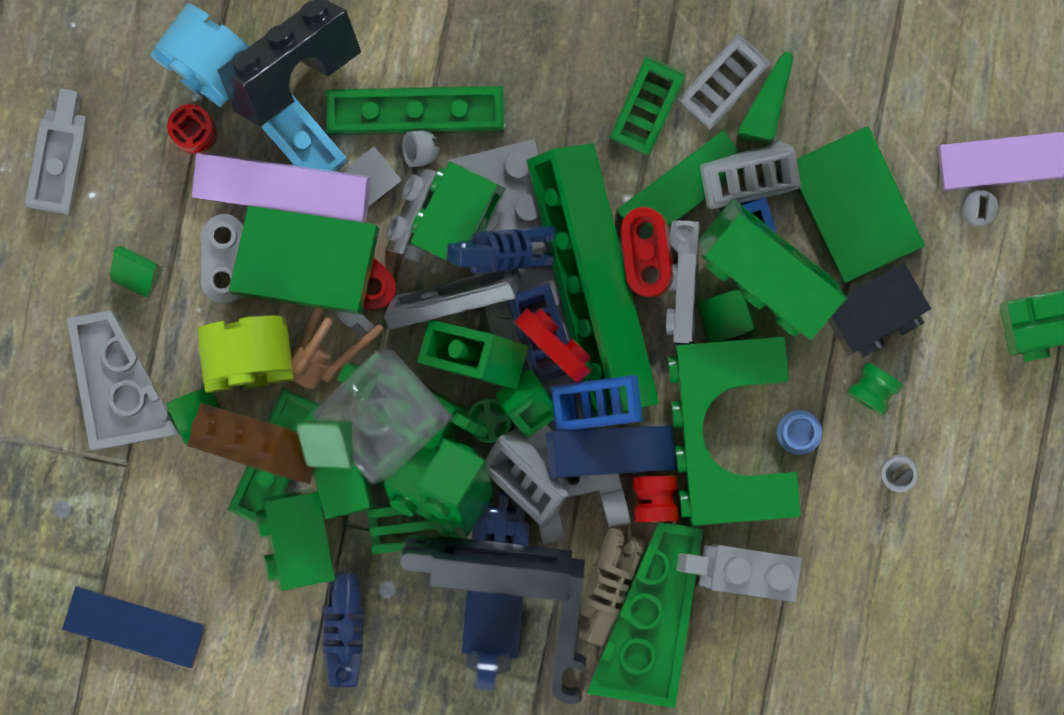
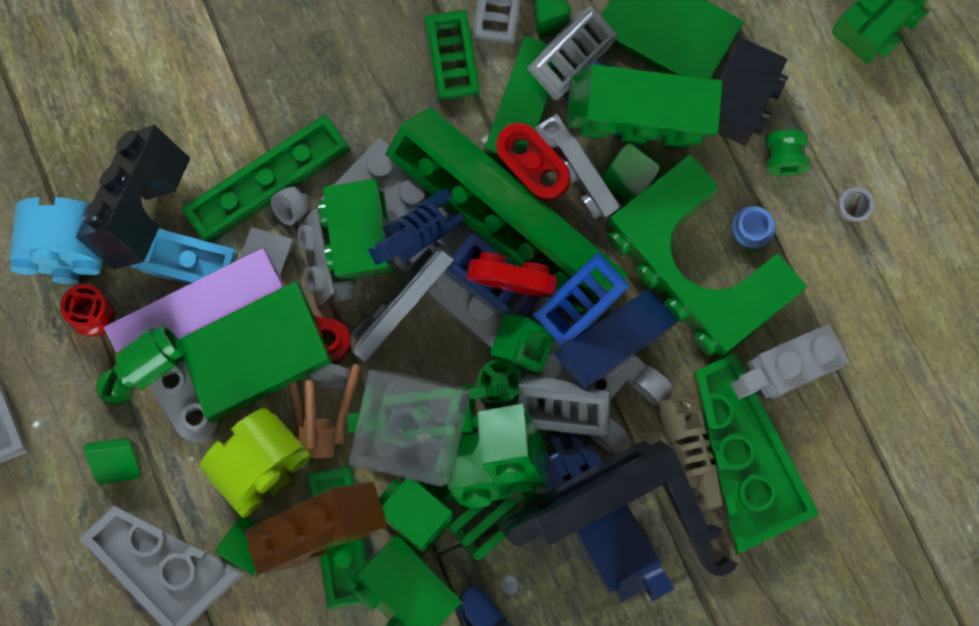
camera: 40 degrees left, 10 degrees down
(179, 215) = (120, 393): none -> green hinge
(215, 206) = (148, 357): none -> green brick
(327, 442) = (379, 477): slope -> none
(473, 354) = (449, 332): green brick -> none
(655, 499) = (679, 354): red wheel -> none

